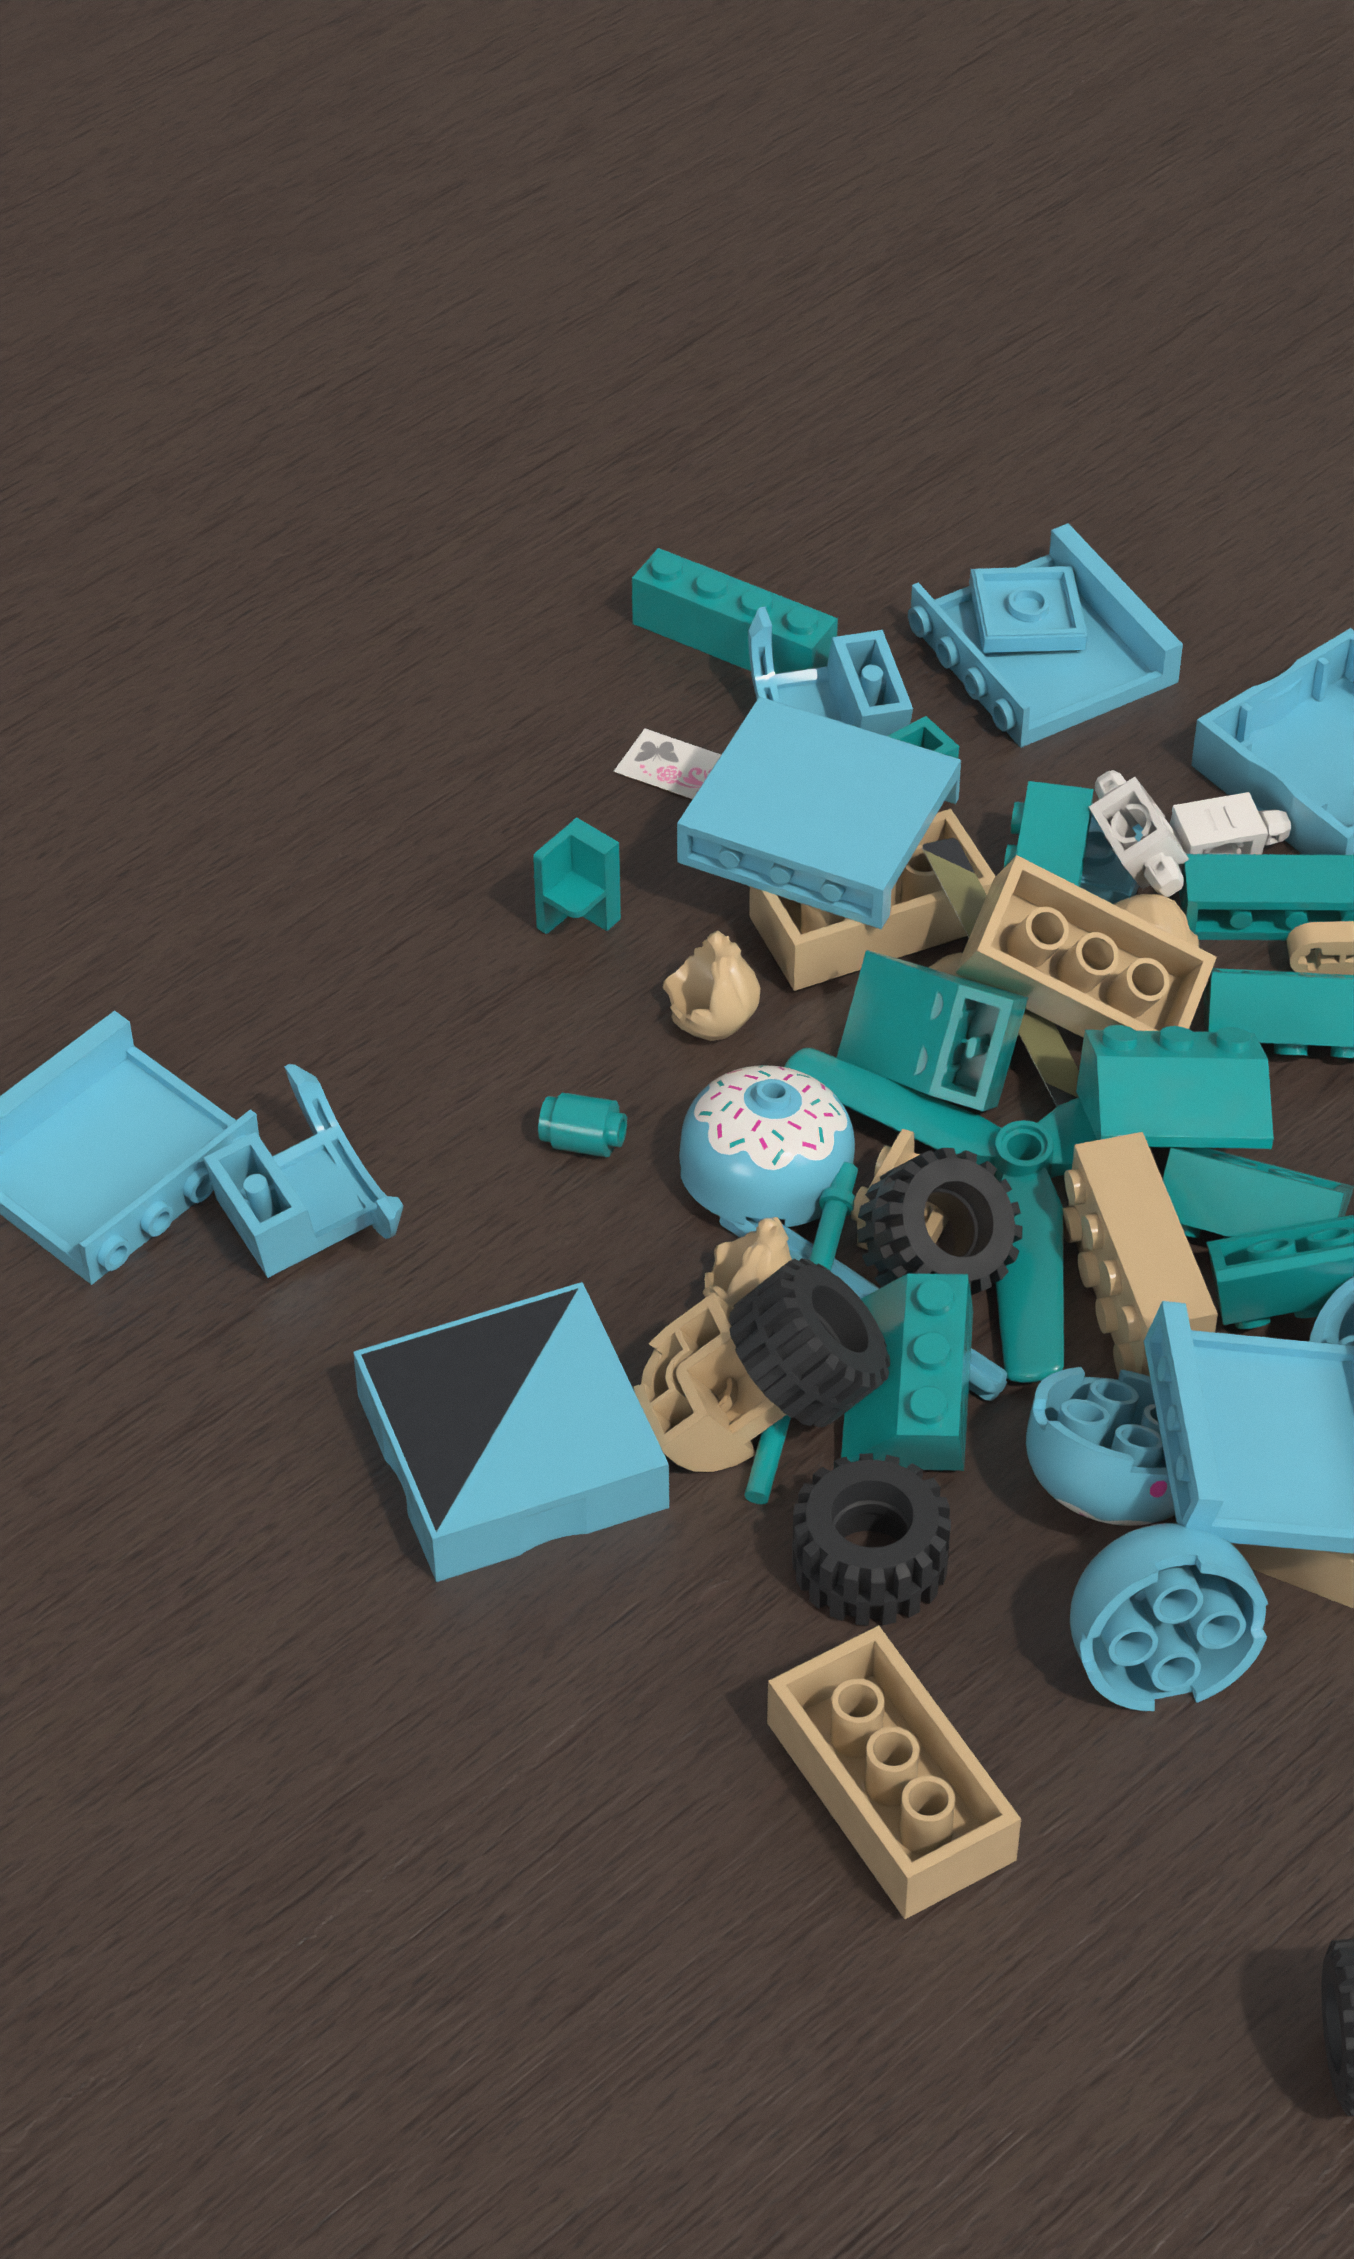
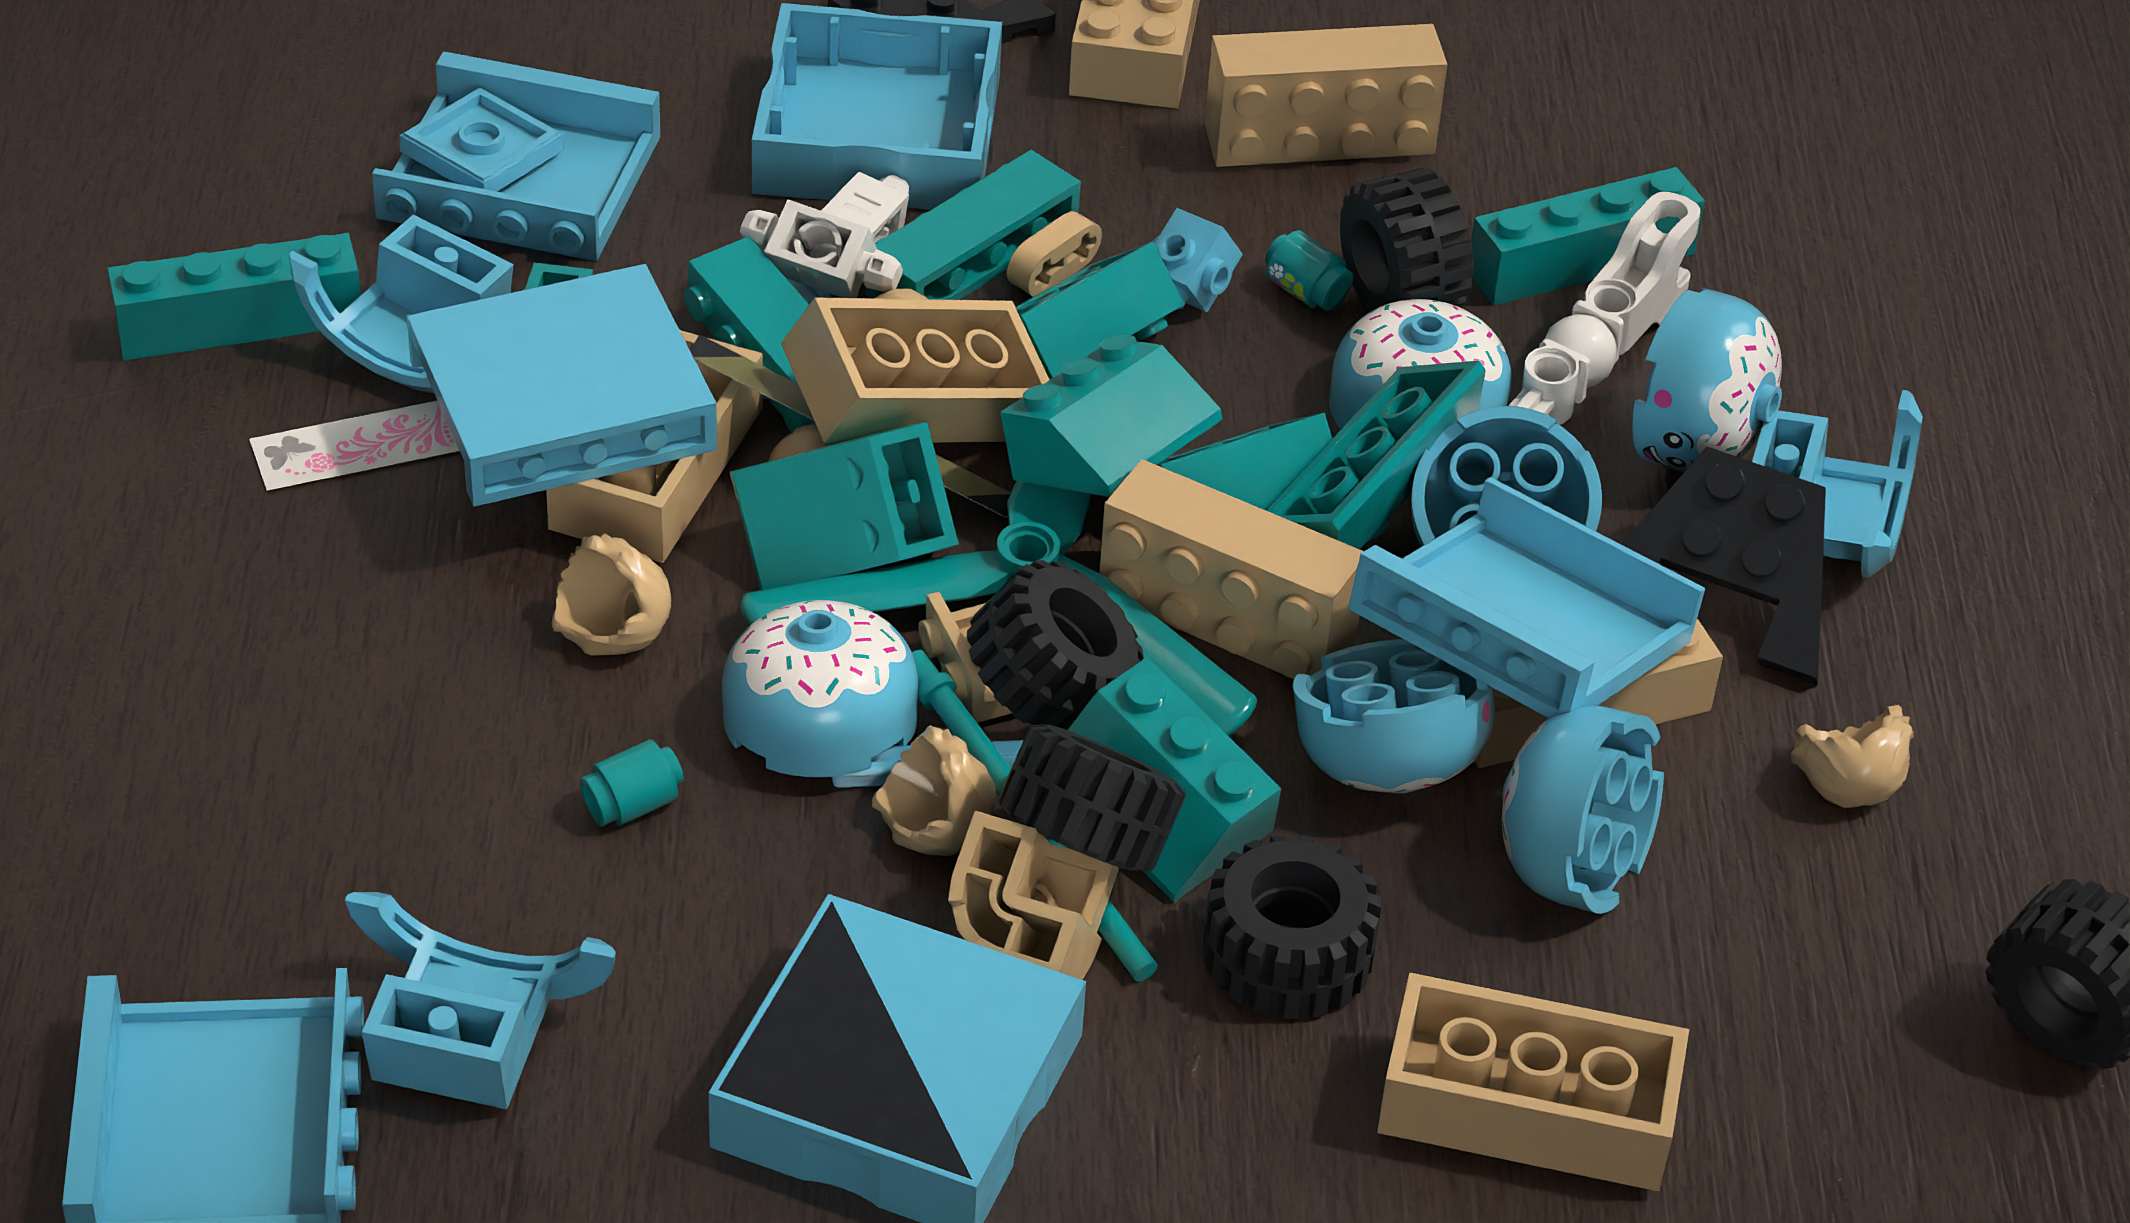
camera: 50 degrees left, 5 degrees down
(577, 878) = (391, 575): teal panel -> none

